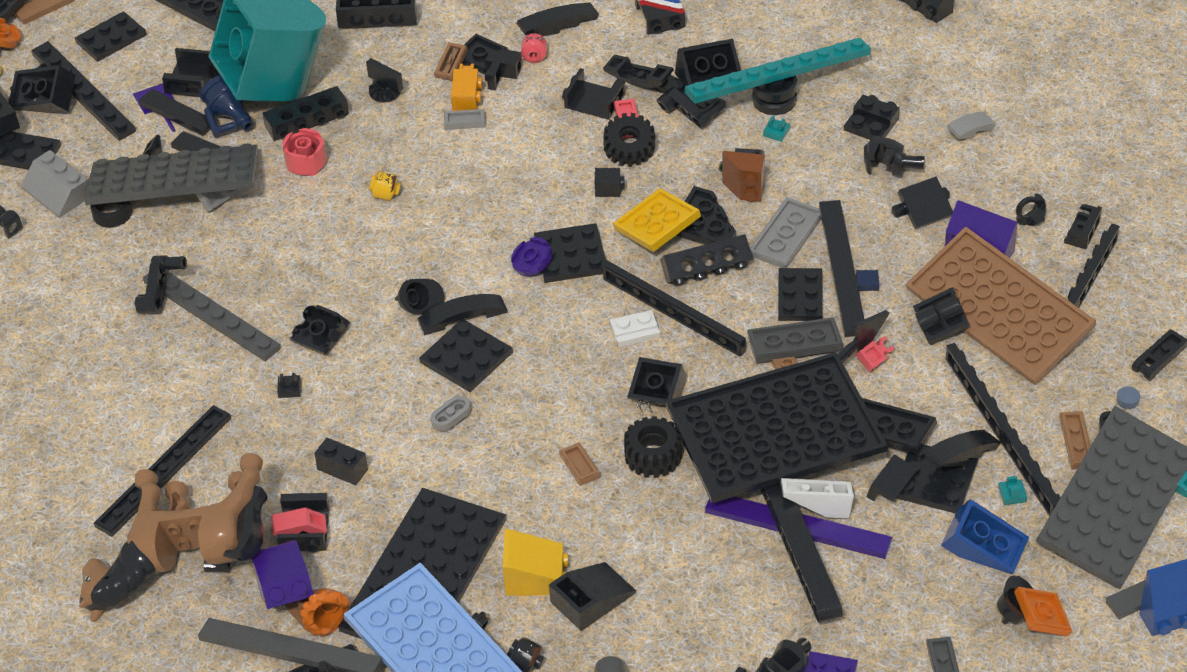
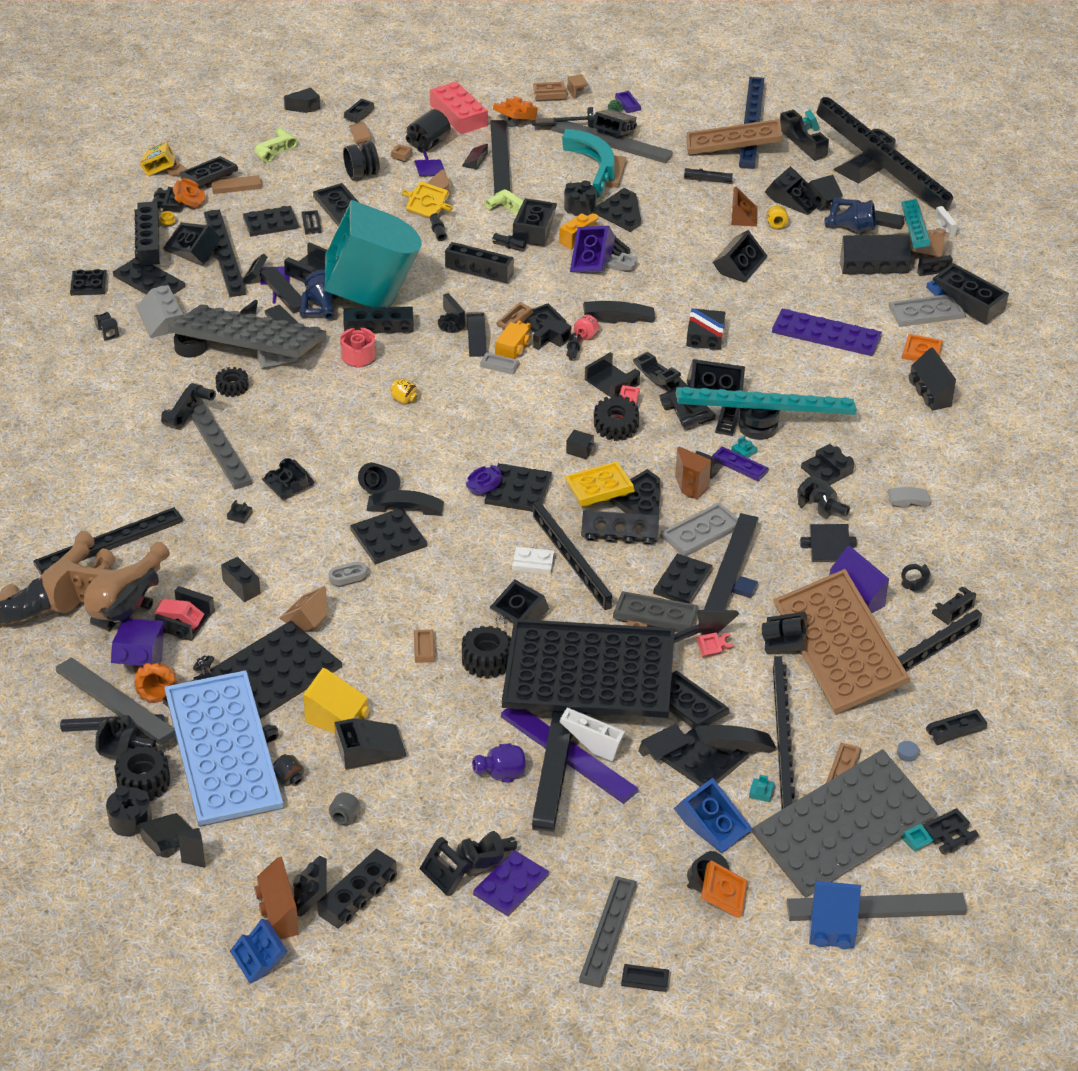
camera: 20 degrees right, 5 degrees down
(130, 98) = (255, 268): none -> black tile
(163, 31) = (312, 229): none -> black tile
(184, 230) = (231, 381): none -> black tyre
(364, 574) = (203, 664): none -> black piece
(421, 93) = (476, 334): none -> black slope
(434, 468) = (308, 610): none -> medium nougat slope
(532, 73) = (573, 346): none -> black axle
(742, 562) = (502, 762): none -> dark purple piece
(747, 97) = (727, 410): none -> black slope
(783, 147) = (741, 464): none -> dark purple tile

